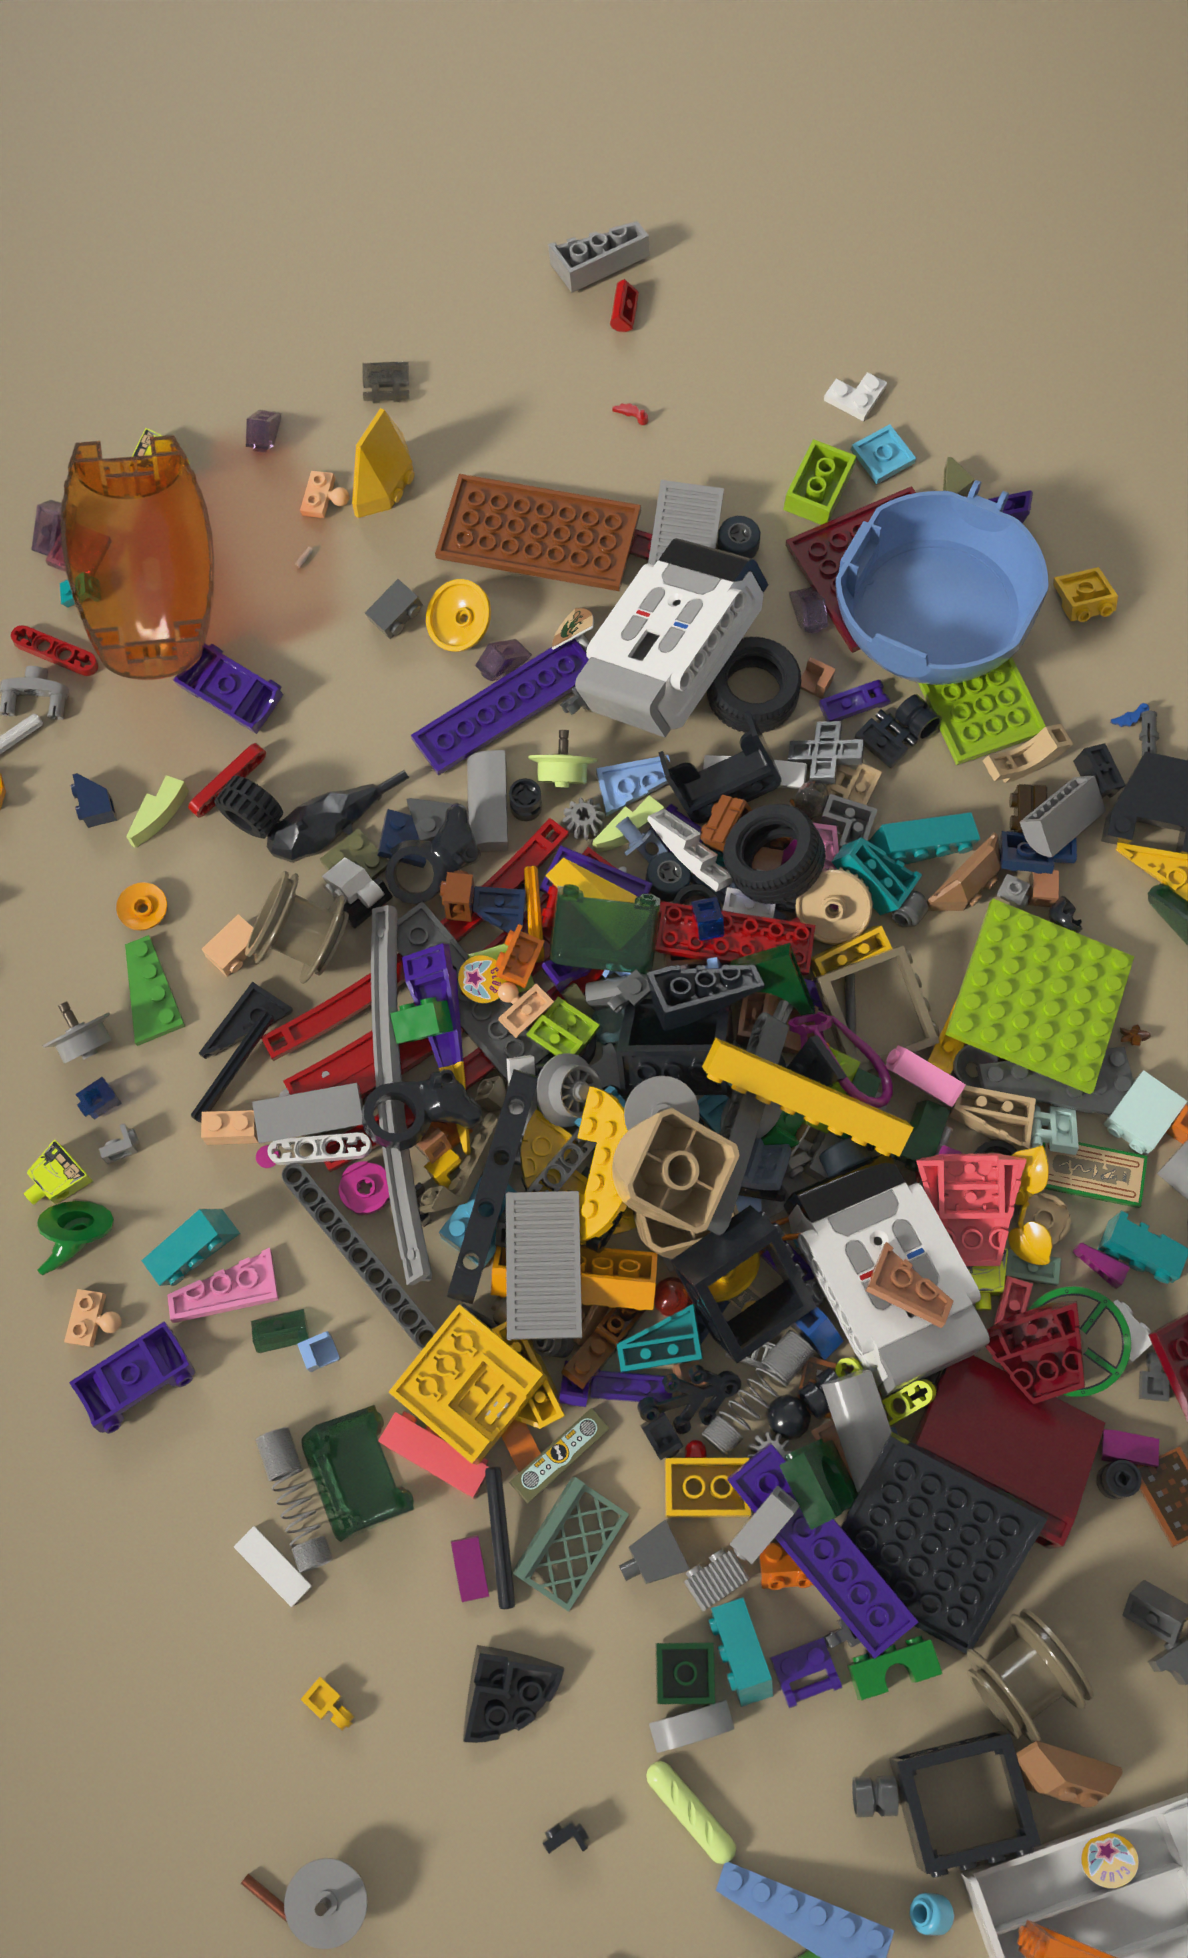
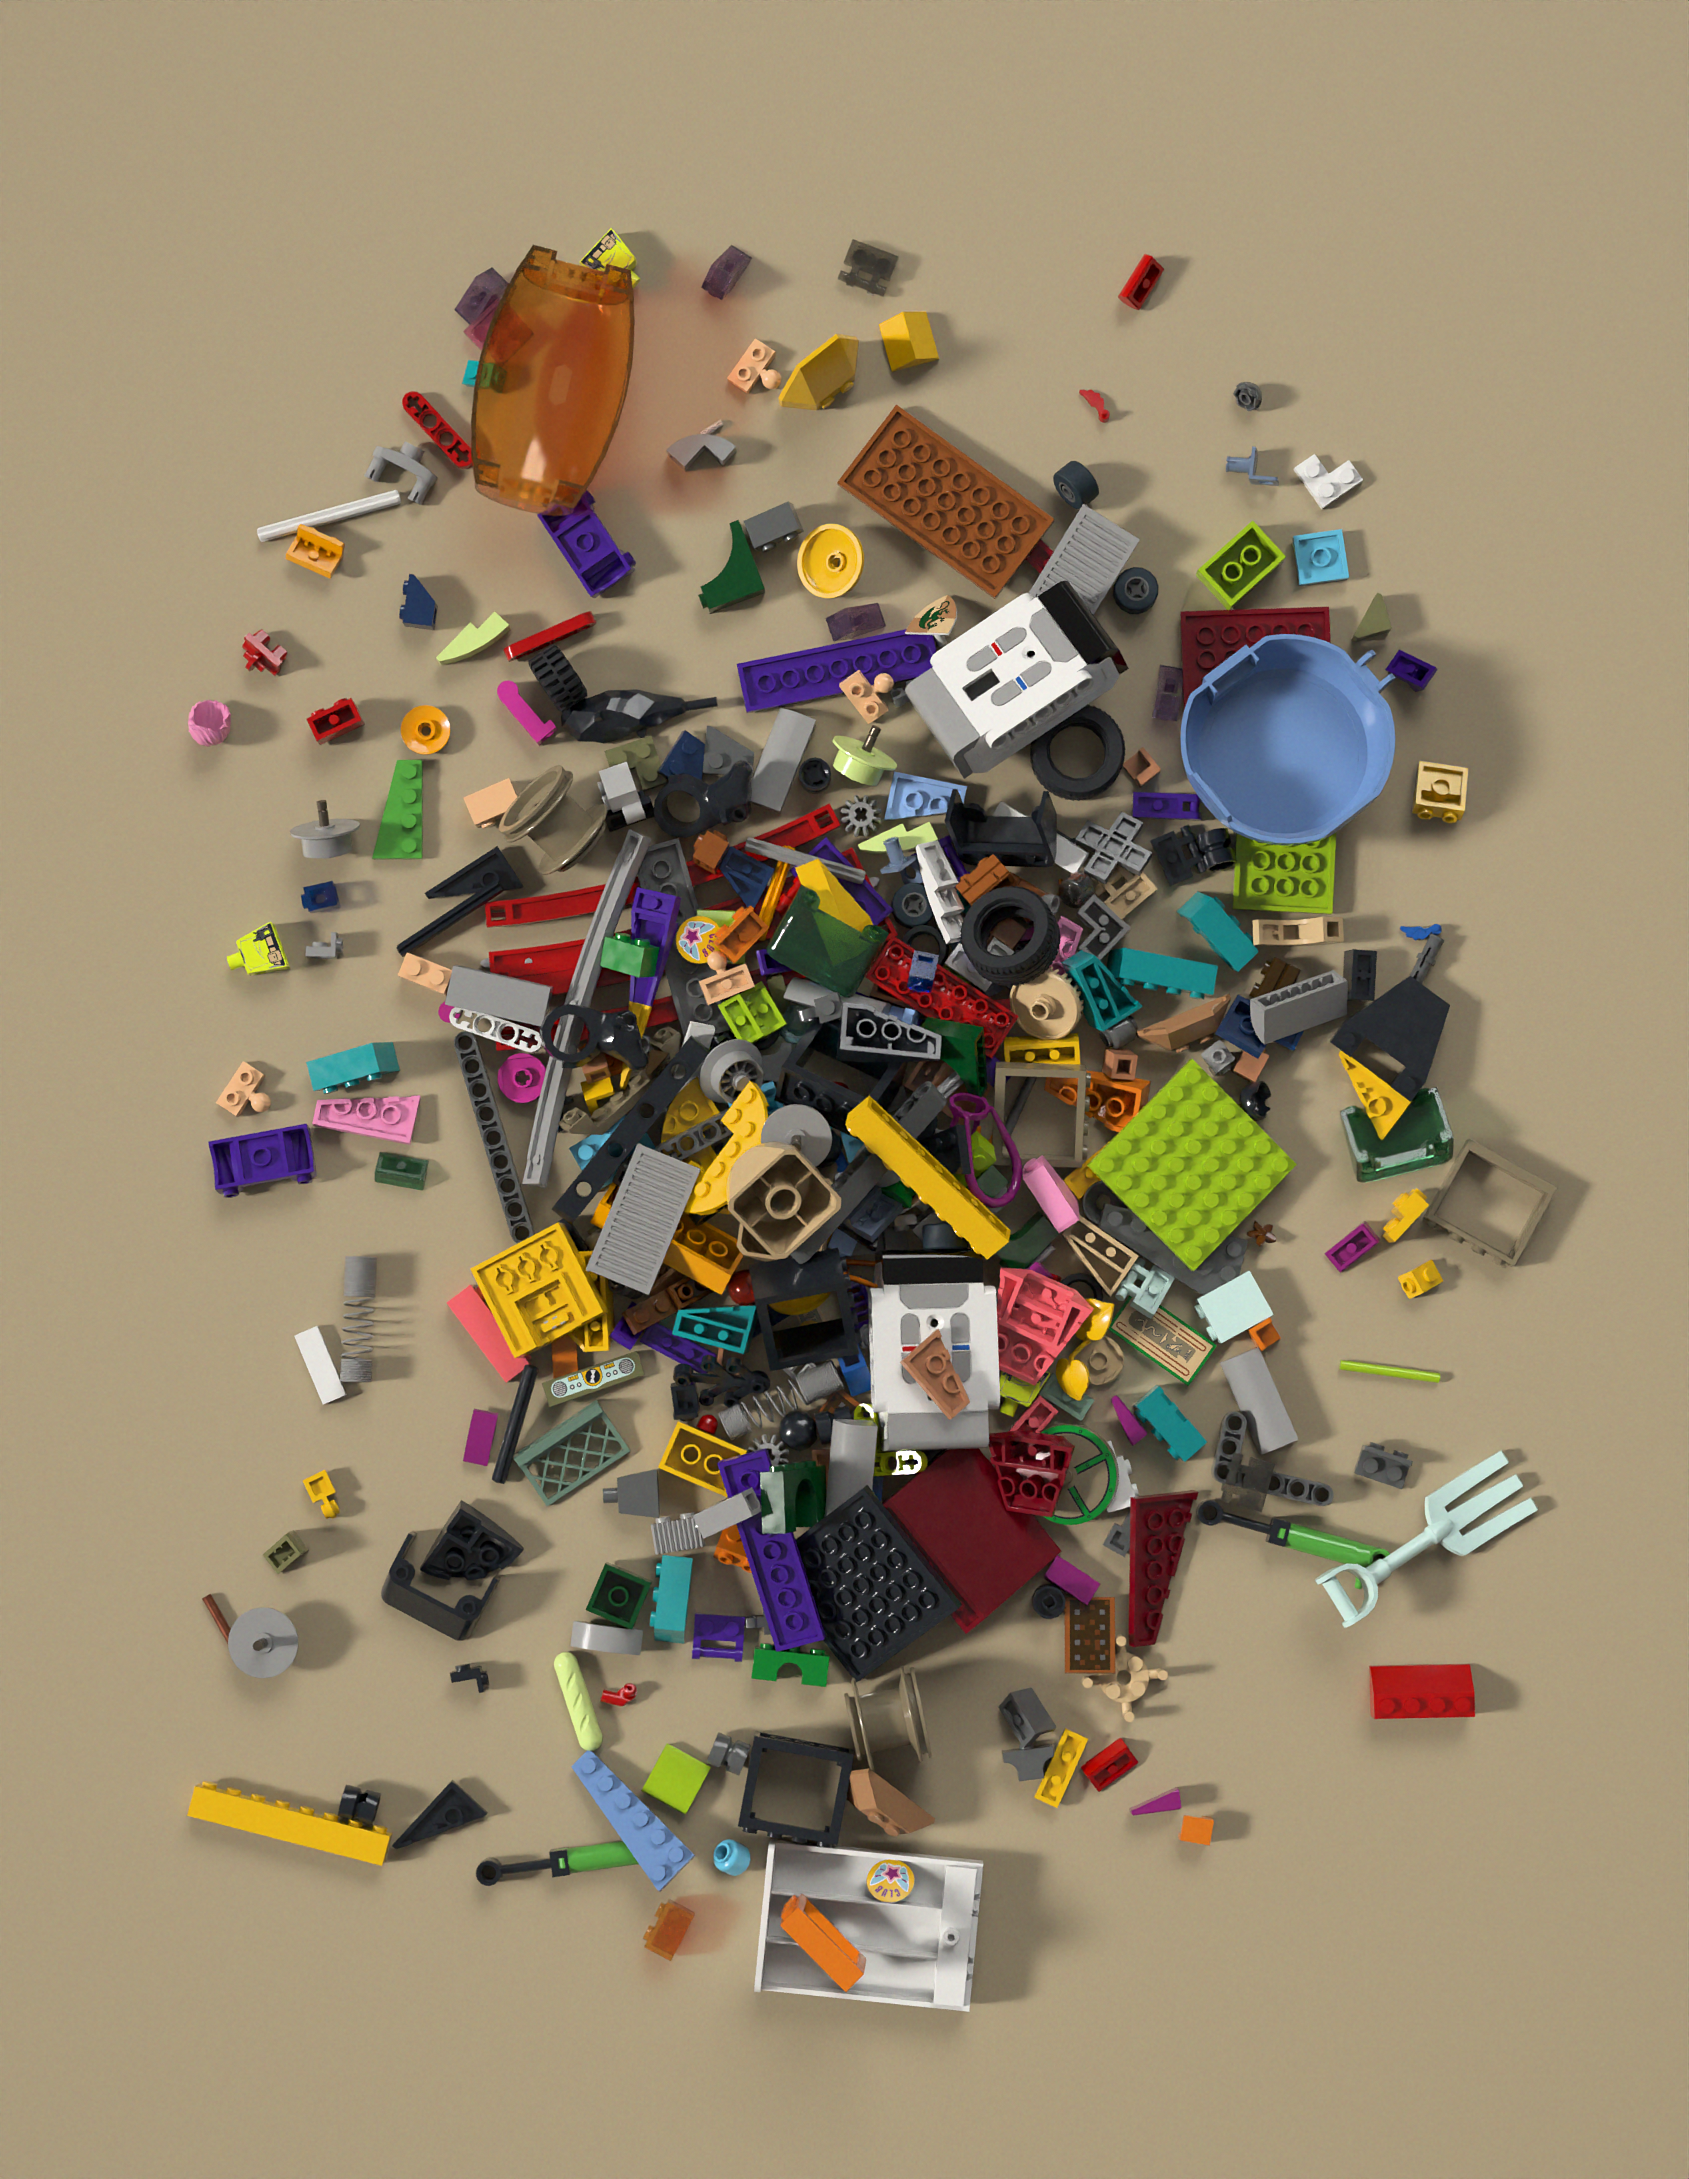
camera: 25 degrees right, 15 degrees up
(51, 931) = (335, 720): none -> red brick
(71, 1228) = (258, 1005): green piece -> none
(231, 856) = (510, 697): none -> dark pink leg
(290, 576) = (688, 449): none -> light grey brick
(312, 1787) = (285, 1551): none -> olive slope
(318, 1351) = (426, 1204): light blue panel -> none
(354, 1473) = (416, 1320): clear green windscreen -> none
(381, 665) = (738, 578): none -> dark green arch
(445, 423) = (908, 340): none -> yellow slope
(489, 1782) = (453, 1622): none -> black windscreen
(491, 1109) = (656, 1062): none -> dark brown slope
(538, 871) = (798, 858): none -> light grey axle
(540, 714) = (865, 696): none -> light nougat plate
(598, 255) = (1140, 213): light grey wedge -> none
(645, 474) = (1076, 484): none -> black wheel
(734, 1785) = (621, 1697): none -> red arm
(757, 362) = (1248, 395): none -> dark grey plate
(786, 407) = (1248, 465): none -> sand blue bracket
(831, 1852) = (676, 1779): none -> lime slope
(926, 934) = (1119, 1063): none -> nougat brick
(938, 967) = (1111, 1099): none -> orange wedge
(956, 782) = (1219, 930): none -> teal wedge

